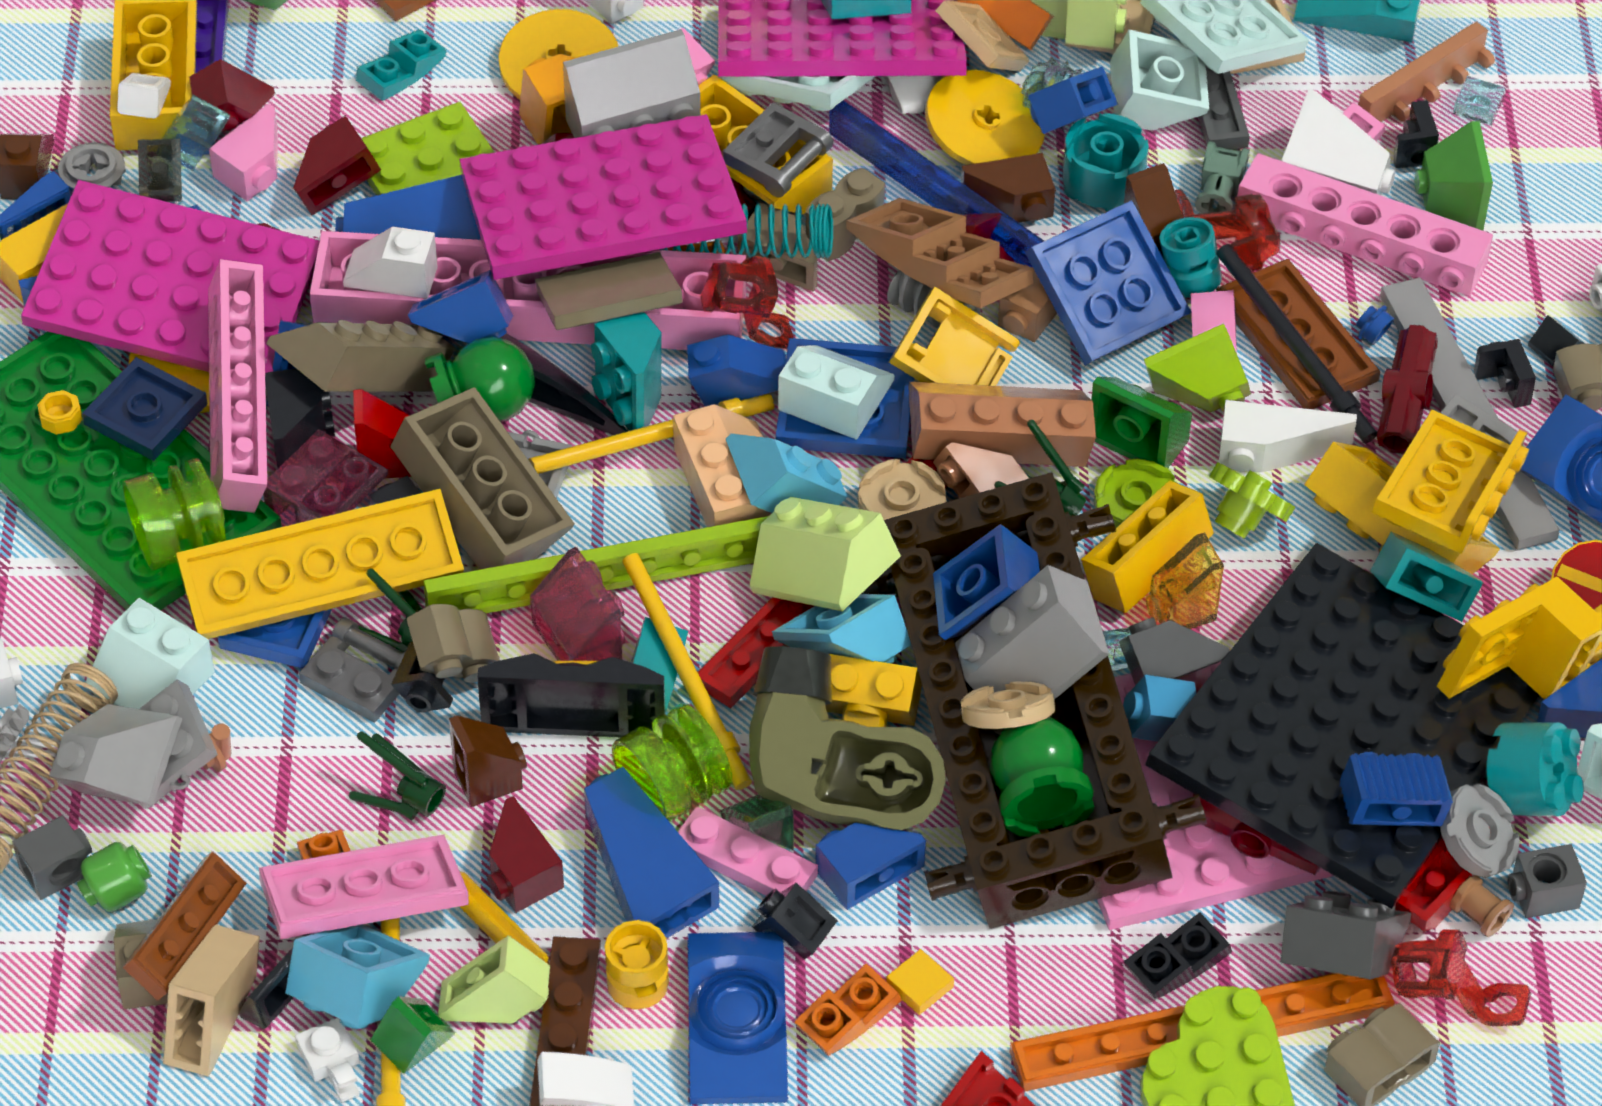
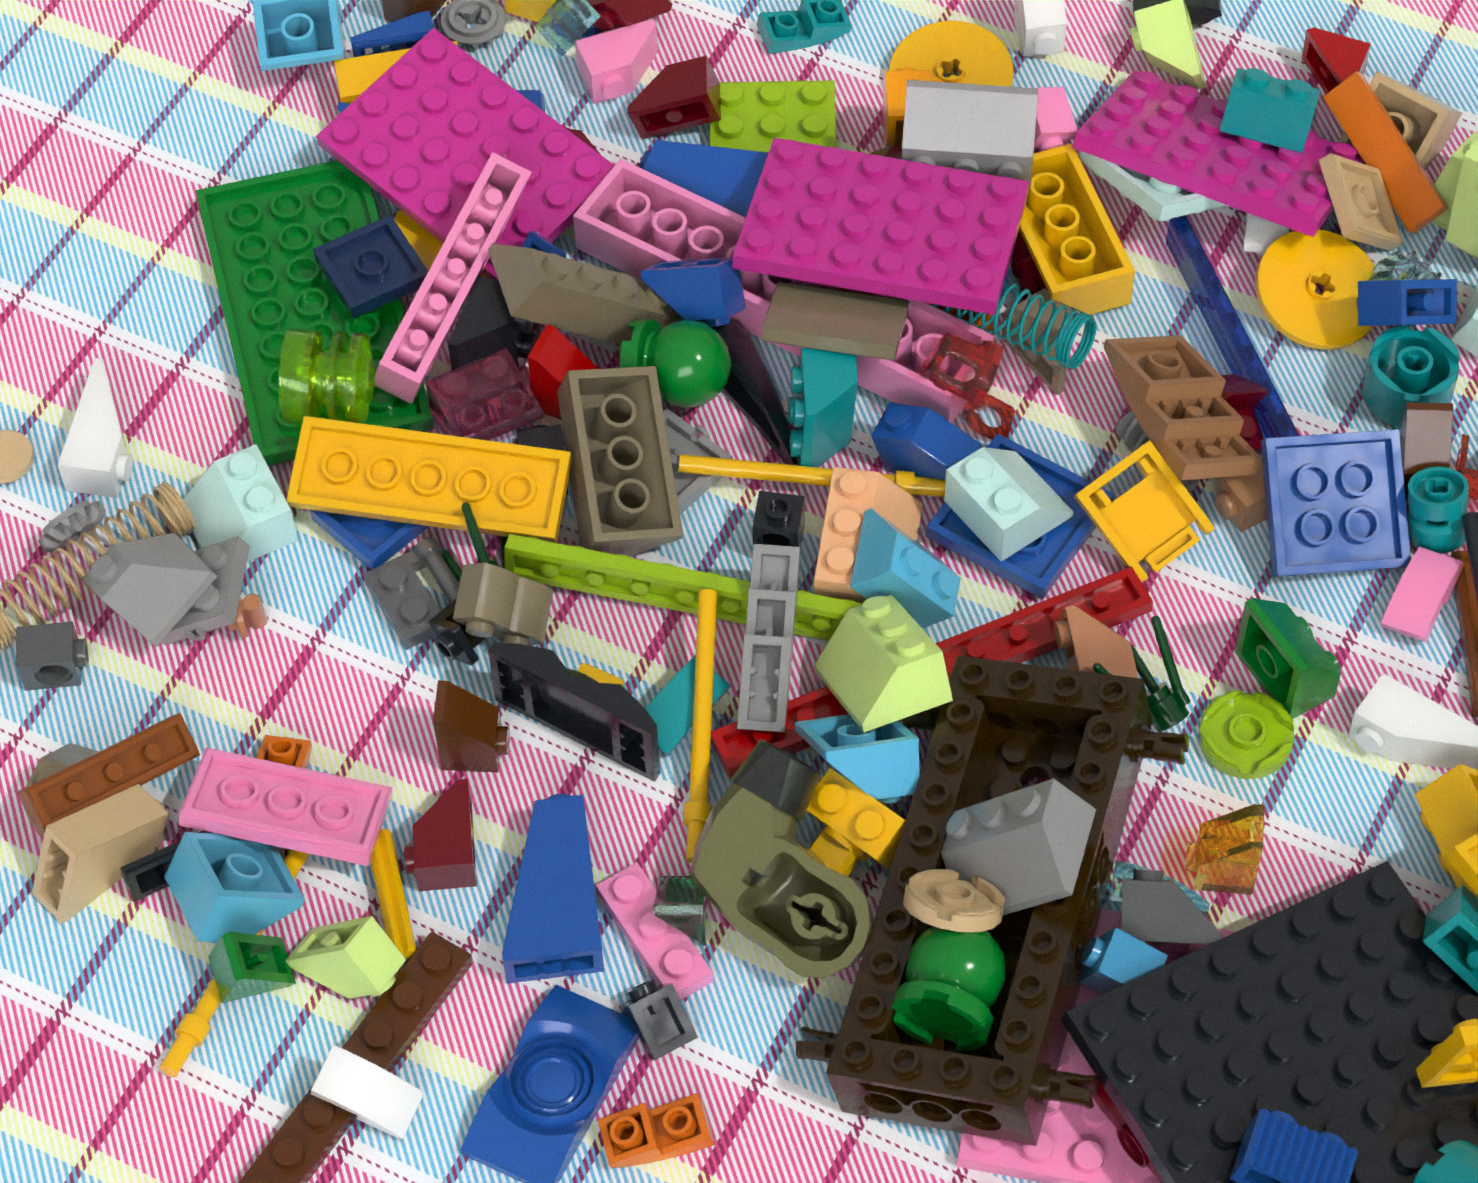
camera: 30 degrees right, 5 degrees up
(59, 412) = (298, 239): yellow tile -> none
(114, 876) = (89, 698): bright green head -> none
(160, 169) = (519, 48): clear smoke slope -> none
(330, 1054) = (170, 953): white plate -> none
(395, 263) = (660, 217): white slope -> none
(417, 789) = (398, 735): dark green plant -> none
(577, 612) = (634, 628): clear pink slope -> none
(636, 964) = (483, 995): yellow wheel -> none
(649, 486) = (779, 519): none -> black brick
(675, 760) = (628, 813): clear neon green wheel -> none
(706, 574) = (769, 638): none -> light grey slope
(769, 140) = (1077, 230): flat silver plate -> none
(853, 196) = (1137, 316): dark tan brick -> none
(867, 860) = (760, 990): blue slope -> none
(900, 488) = (1007, 631): tan tile -> none
(920, 981) = (741, 1134): yellow tile -> none
(981, 580) = (1008, 760): blue slope -> none
(998, 418) = (1130, 588): nougat slope -> none
(1014, 185) = (1304, 367): reddish brown slope -> none
(1125, 560) = (1214, 785): yellow brick -> none
(1200, 371) = (1377, 631): lime slope -> none
(1246, 500) = (1346, 785): lime plant -> none

